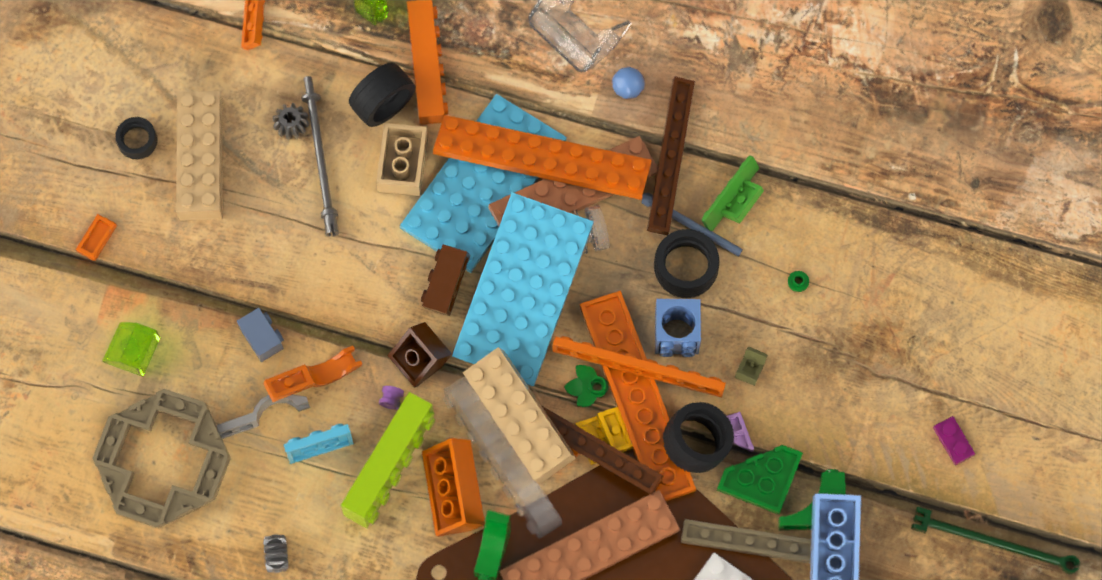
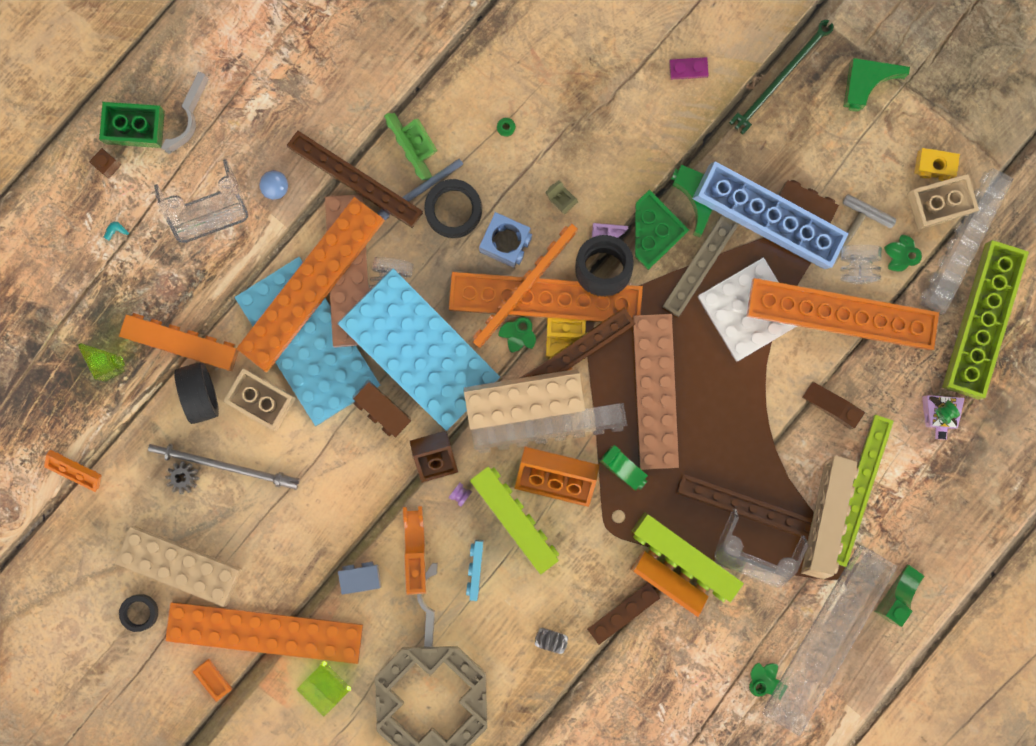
camera: 70 degrees left, 15 degrees up
(166, 268) = (264, 632): none -> orange plate

